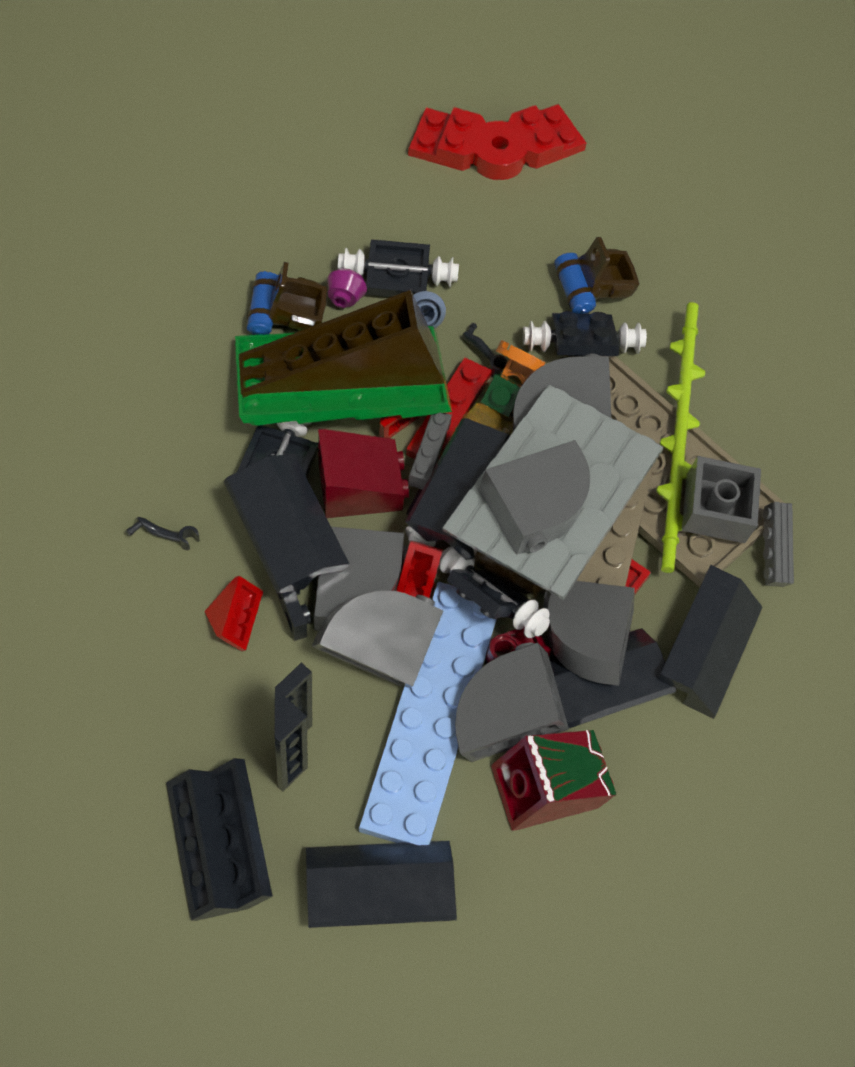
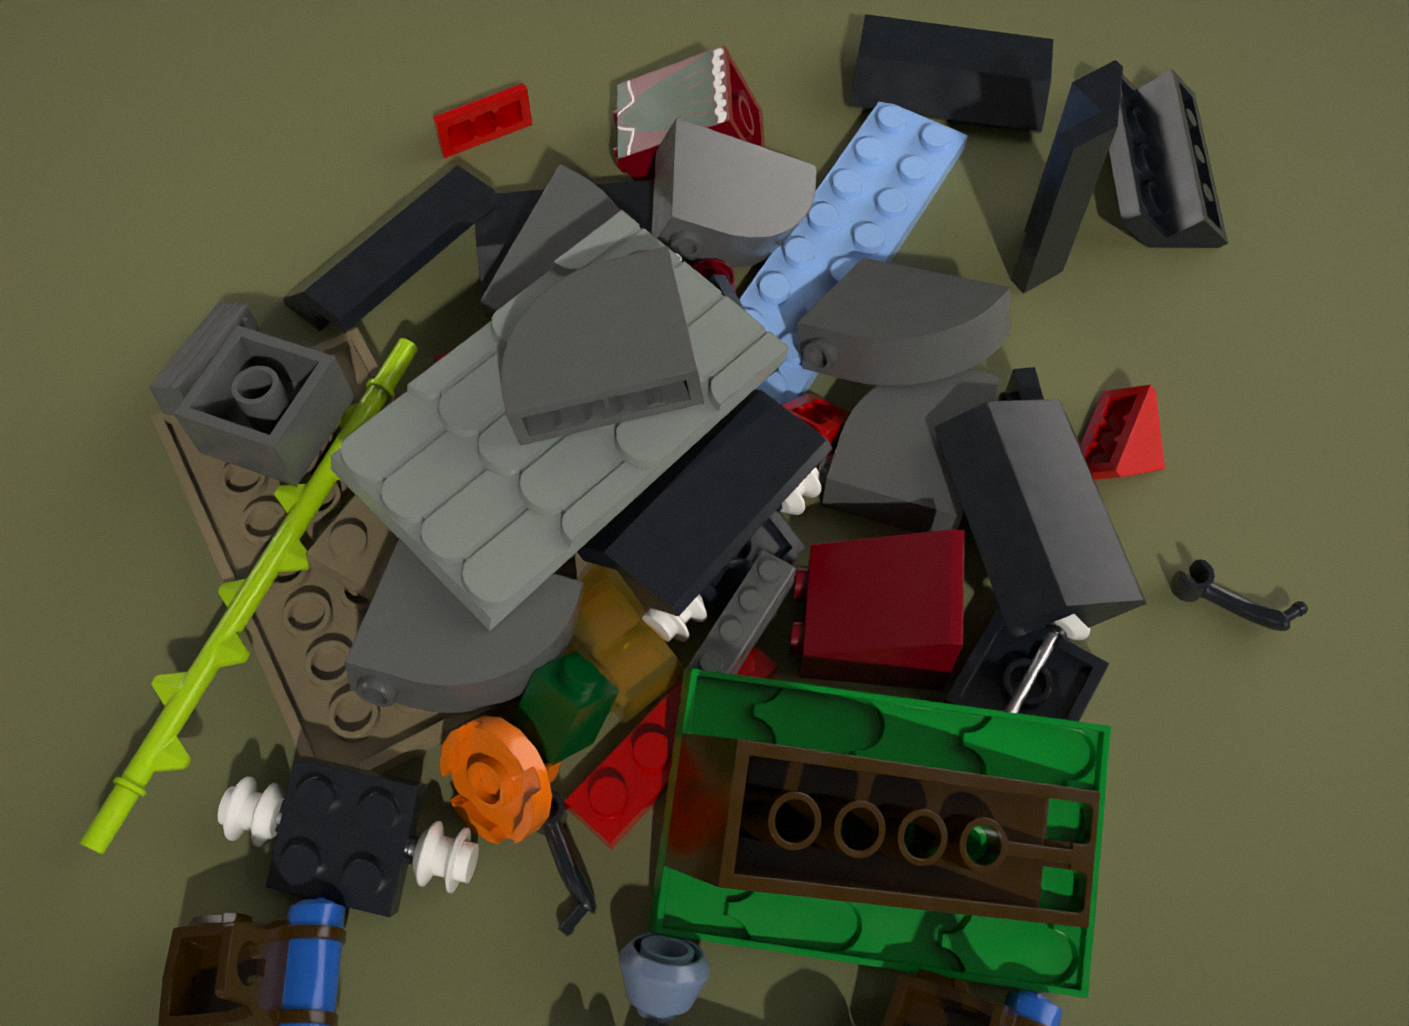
camera: 160 degrees left, 0 degrees up
(705, 769) = (483, 120): none -> red slope

